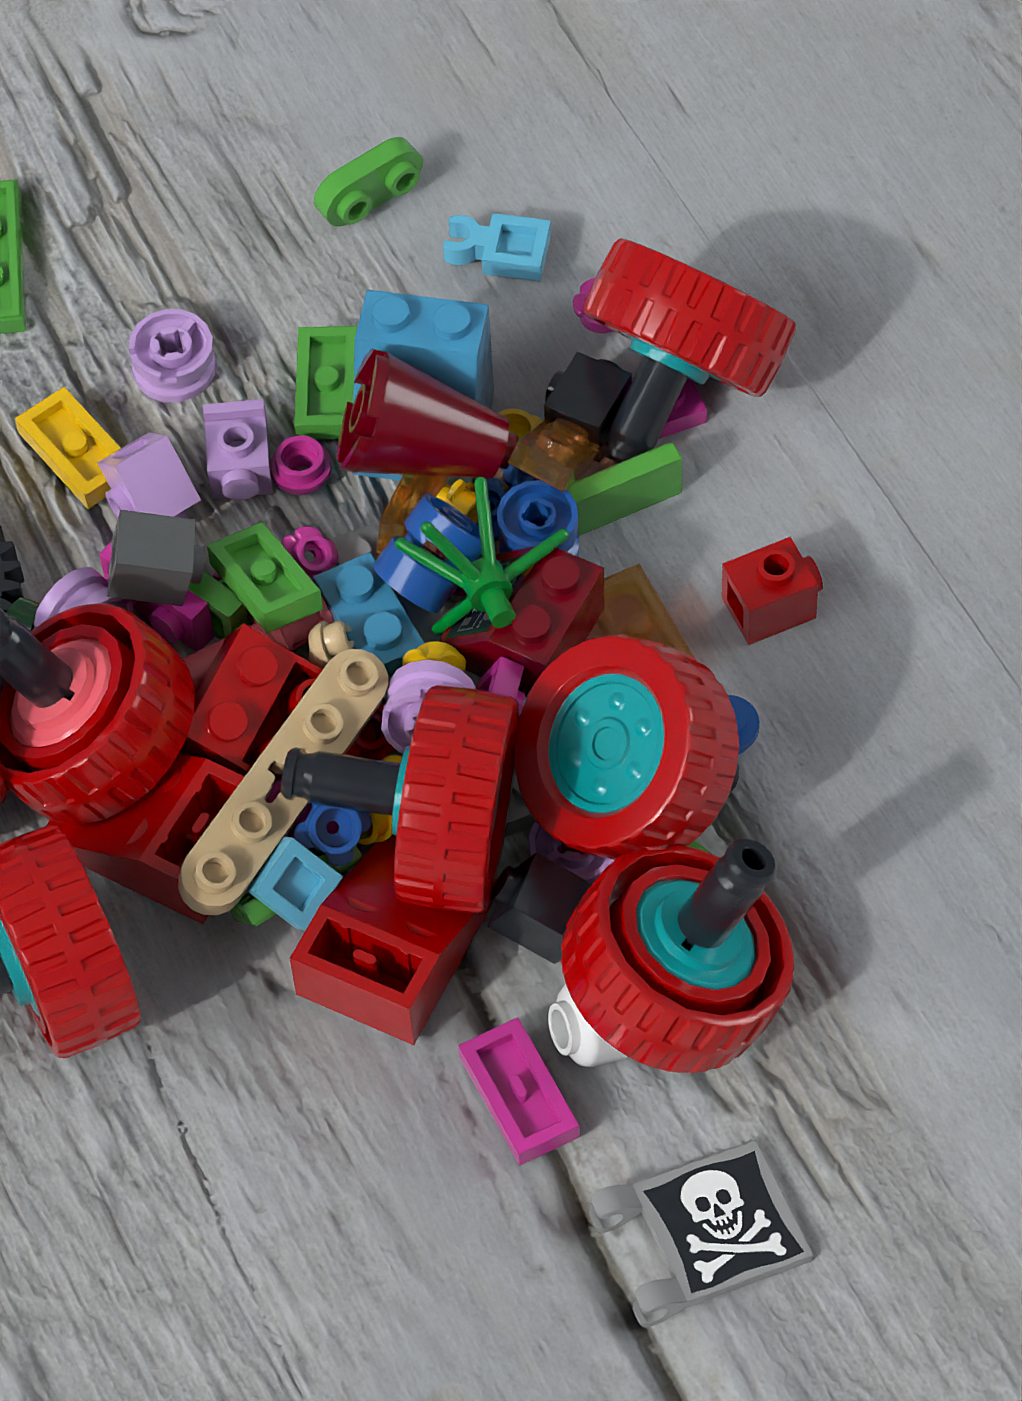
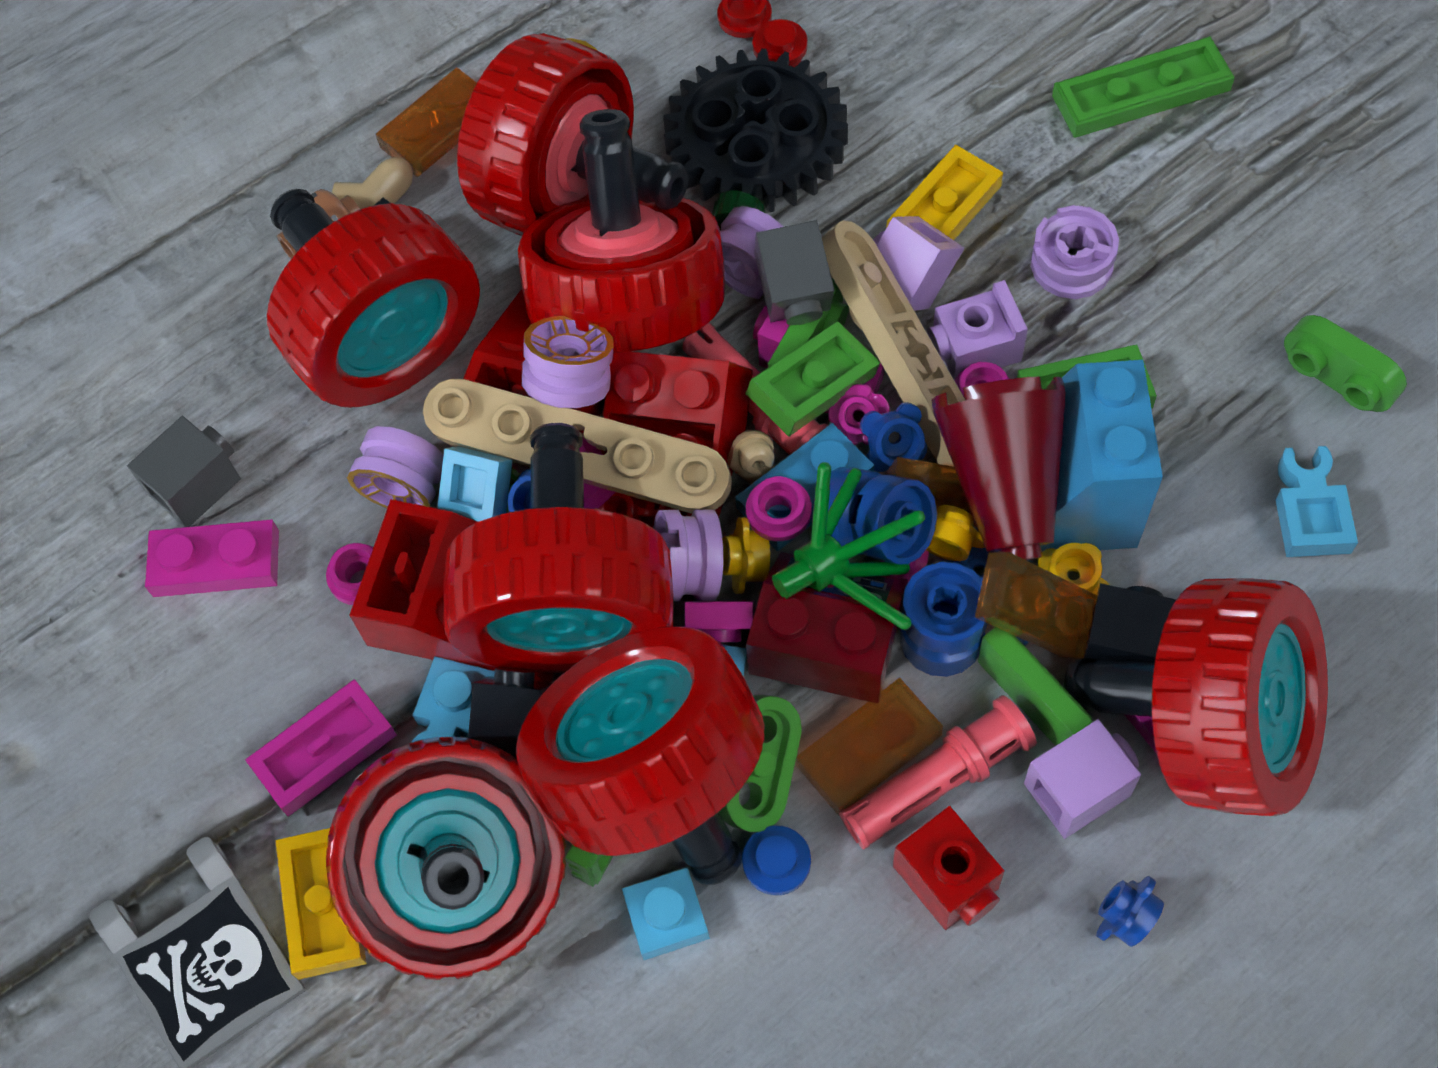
camera: 80 degrees right, 5 degrees up
(163, 1190) = (186, 470): none -> dark grey brick
(200, 760) = (566, 364): none -> lavender wheel
(235, 975) = (396, 467): none -> lavender wheel
(268, 1185) = (212, 558): none -> dark pink plate
(310, 497) = (890, 326): none -> tan piece
(329, 1025) = (343, 566): none -> dark pink plate
(347, 526) = (879, 426): none -> blue plate
(404, 608) = (773, 492): none -> dark pink plate
(502, 973) = (447, 699): none -> medium azure plate
(668, 559) = (962, 757): none -> coral pin
(678, 1107) = (314, 931): none -> yellow plate
(718, 469) = (1083, 777): none -> lavender brick
(757, 817) = (665, 913): none -> medium azure plate
(837, 469) = (1130, 911): none -> blue plate

